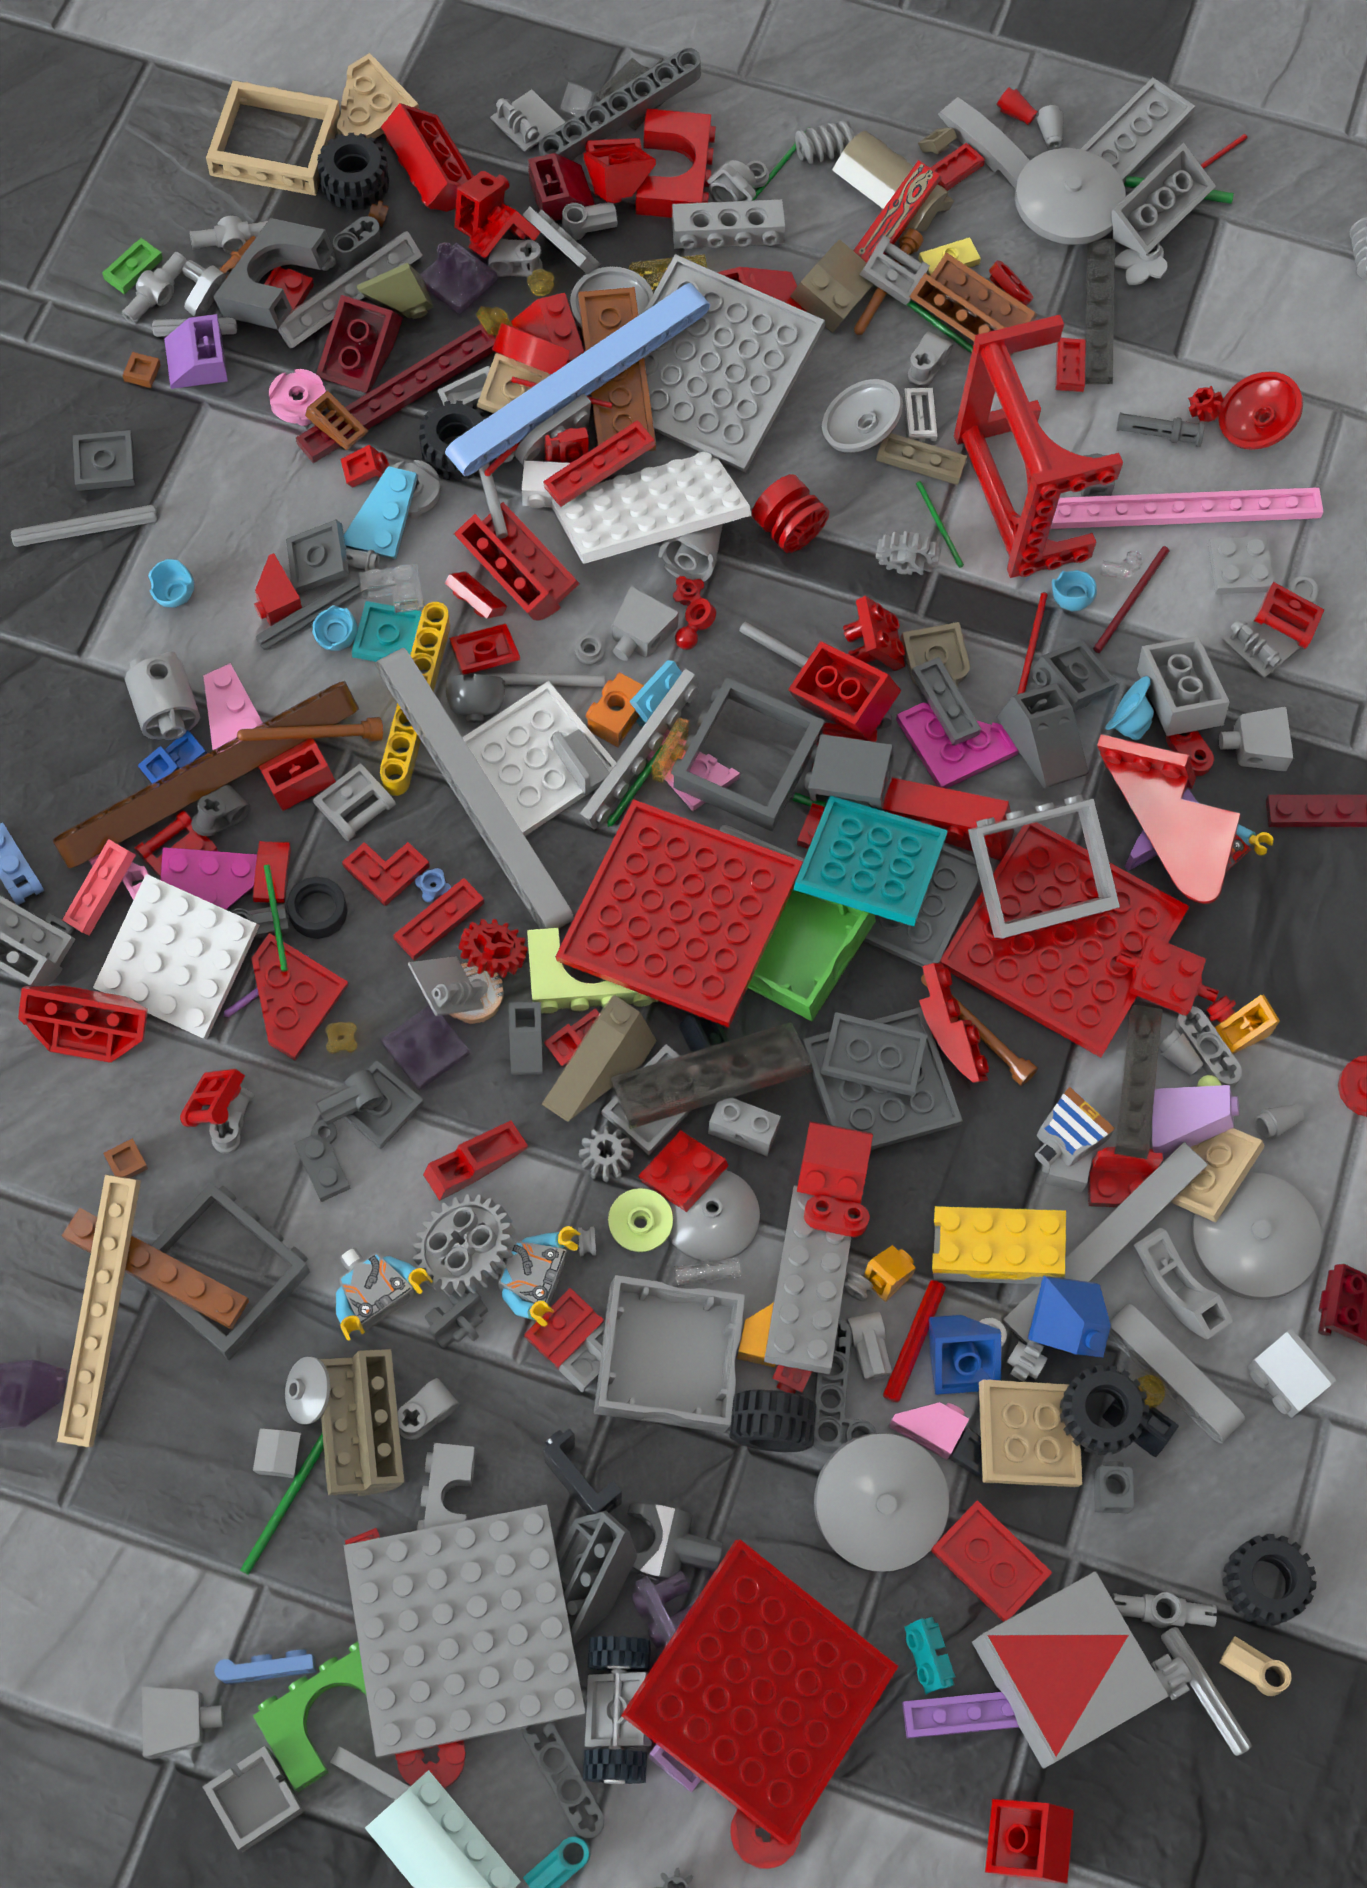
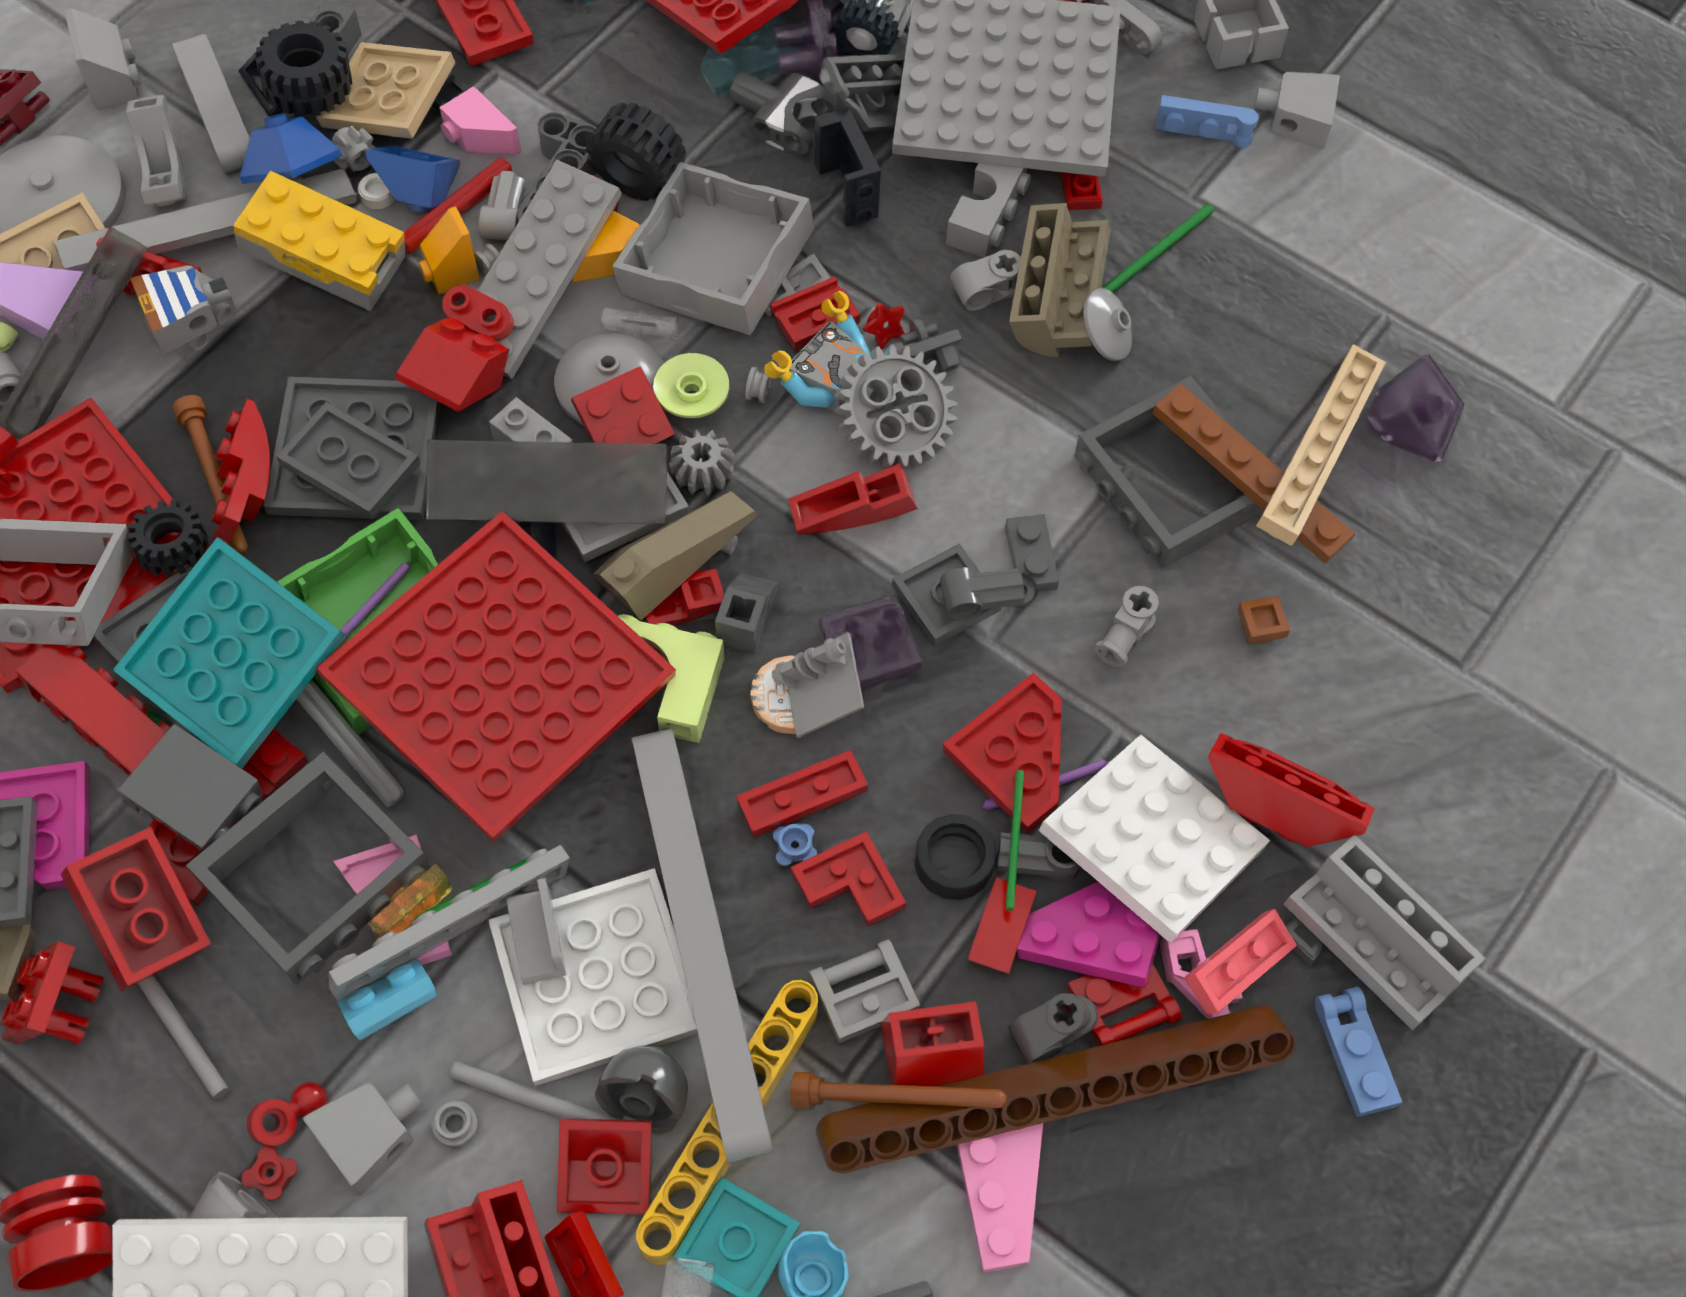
camera: 160 degrees left, 5 degrees down
(162, 696) = (1095, 1205): light grey cylinder -> none
(176, 755) = (1101, 1139): blue slope -> none
(216, 1090) = (1137, 648): red plate -> none
(276, 1453) = (1151, 289): light grey piece -> none
(285, 1719) = (1196, 73): bright green arch -> none
(338, 1029) = (969, 677): clear yellow plate -> none
(374, 1289) = (1010, 400): torso -> none
(493, 948) = (762, 716): red gear -> none
(502, 1335) = (876, 322): none -> red plate
(611, 724) = (461, 985): orange brick -> none
(804, 944) = (374, 600): none -> medium lavender axle
(881, 1502) = (561, 76): light grey dish -> none
(983, 934) = (163, 521): none -> black tyre
(1154, 1390) = (248, 95): clear yellow plate -> none

